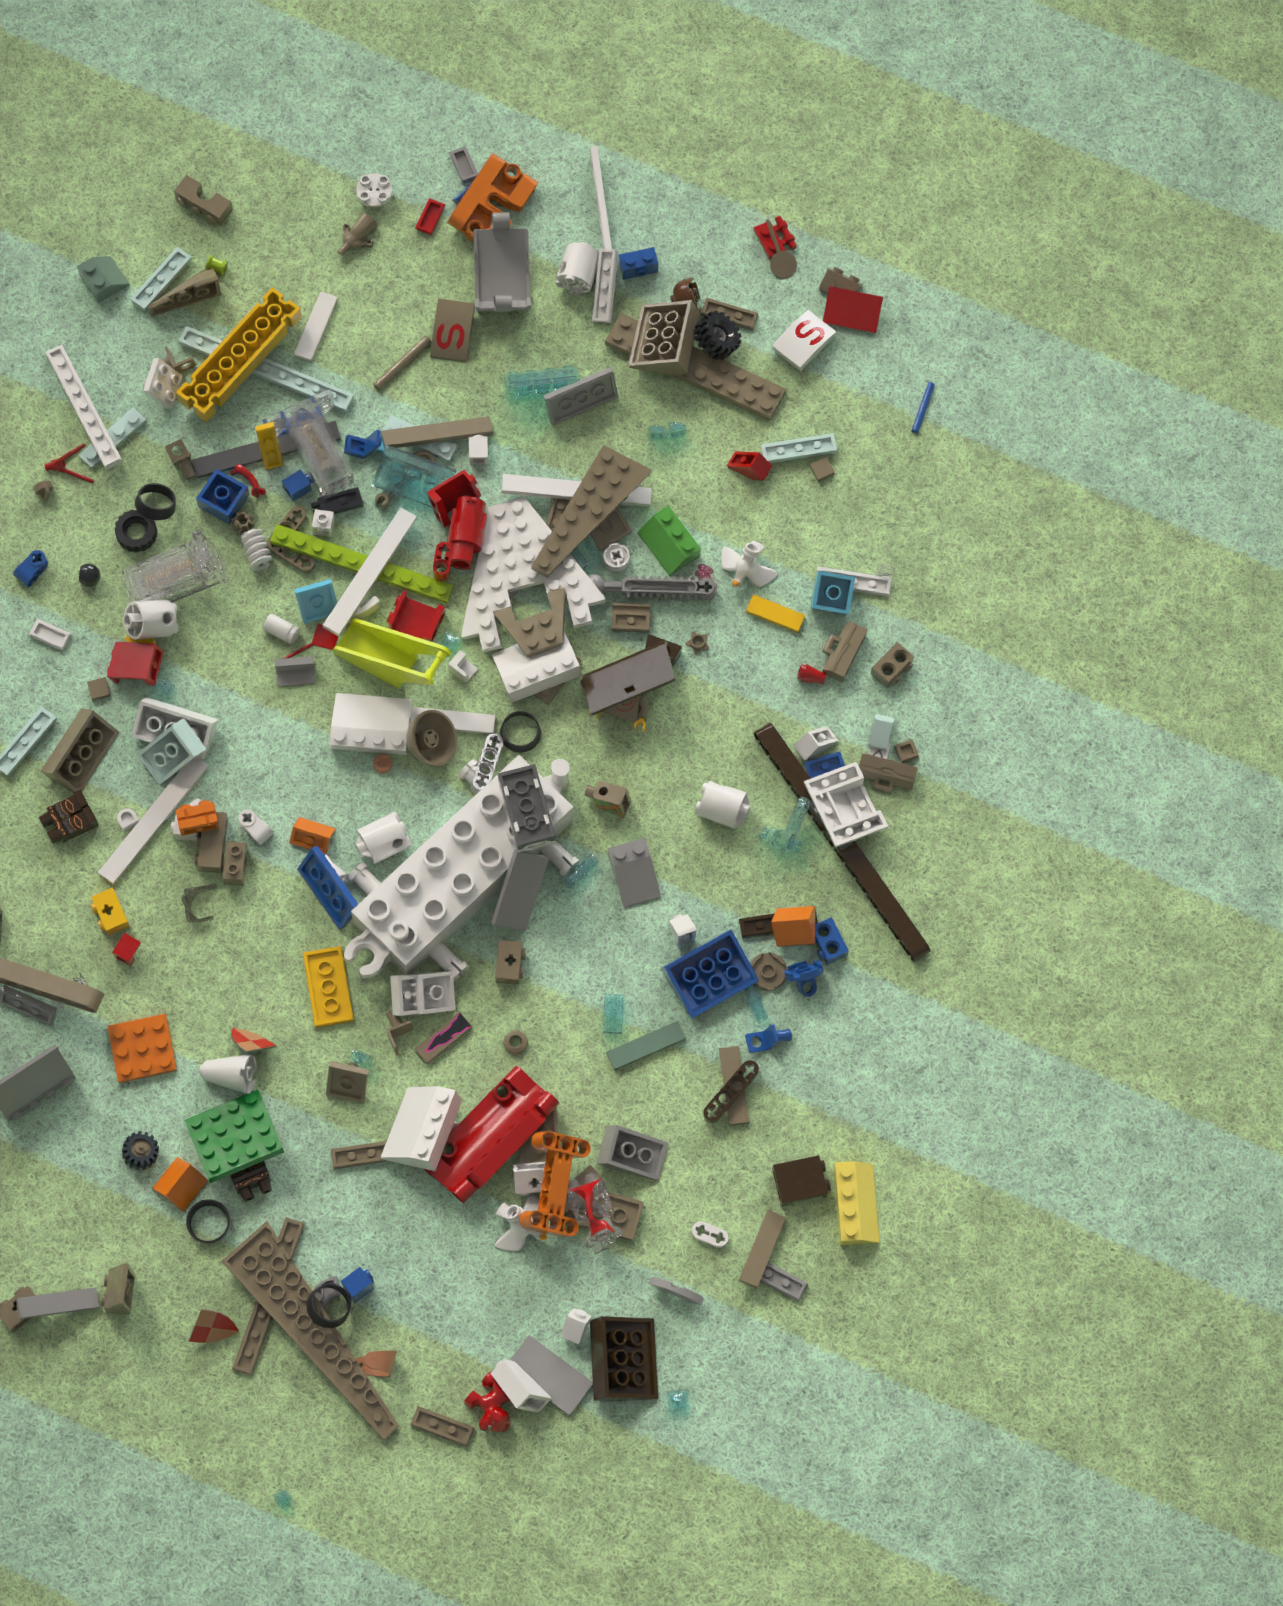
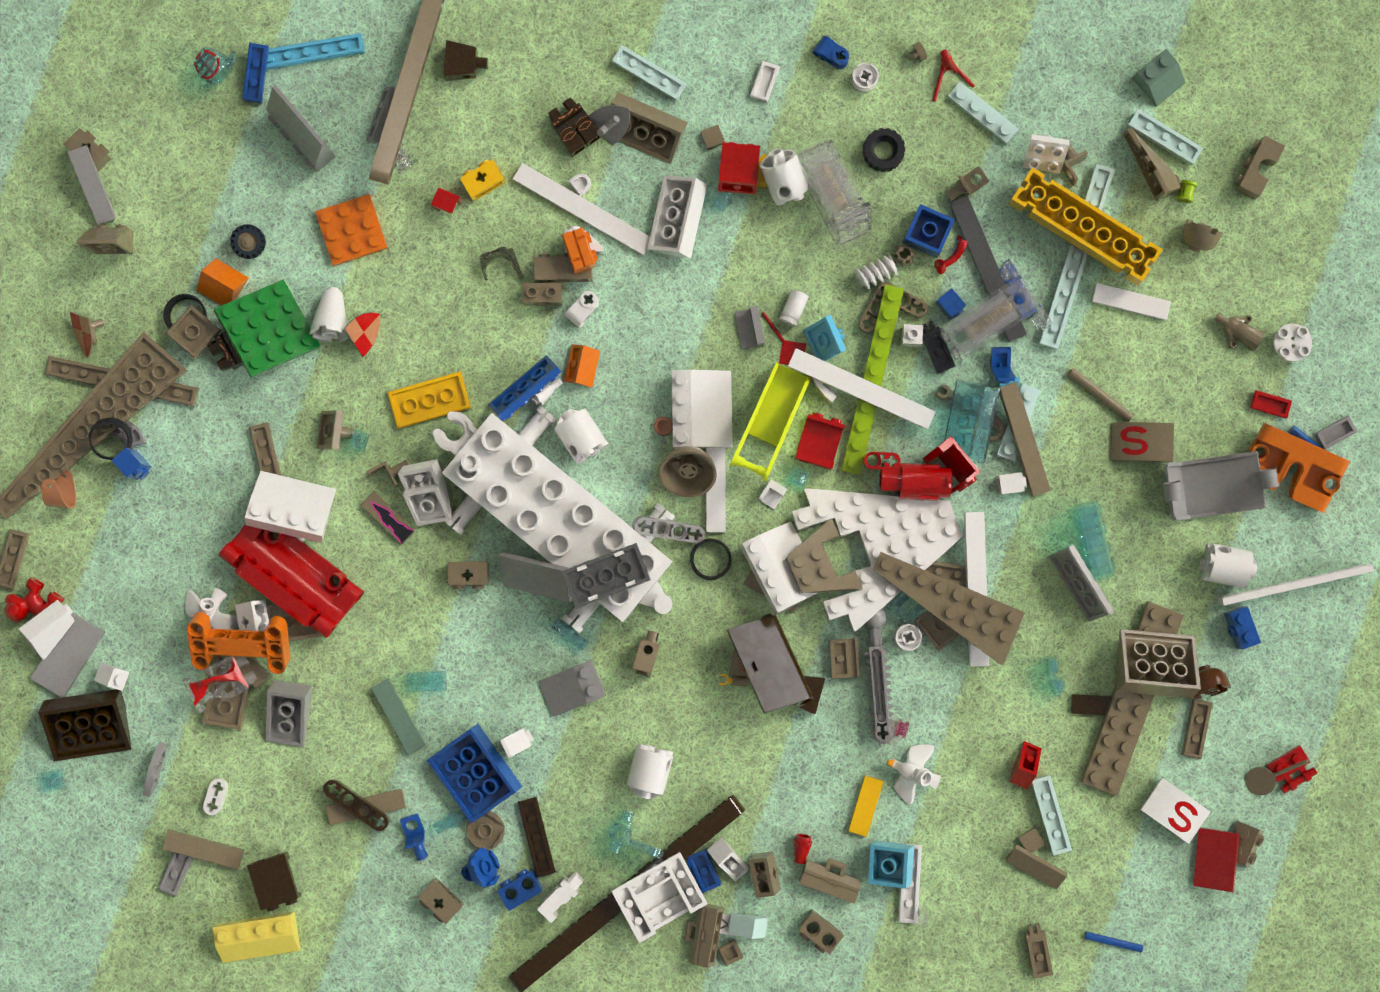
camera: 85 degrees right, 15 degrees up
(68, 541) = (861, 83): none -> white wheel
(69, 778) = (611, 121): none -> light grey shield
(84, 407) = (1012, 79): white tile -> none
(89, 575) = (830, 110): black piece -> none
(155, 513) = (900, 164): black tyre -> none
(171, 751) = (649, 217): light aqua slope -> none
(227, 1211) = (193, 331): none -> dark tan tile
(262, 258) = (1200, 236): none -> dark tan cylinder
(269, 445) = (986, 269): yellow tile -> none
(515, 1050) = (398, 590): dark tan piece -> none
(605, 285) = (1210, 595): white tile -> none
(669, 541) = (931, 689): bright green slope -> none
(697, 404) = (1089, 704): none -> dark brown tile
(697, 637) = (831, 728): dark tan plate -> none
(717, 335) = (1176, 723): black bush -> none
(794, 926) = (530, 854): orange slope -> none
(832, 709) = (764, 874): none -> dark tan brick
(837, 901) = (560, 895): none -> white hips
(837, 1009) = (450, 905): none -> dark tan brick
(846, 466) = (1036, 866): none -> dark tan tile
(926, 473) = (1038, 952): none -> dark tan hinge

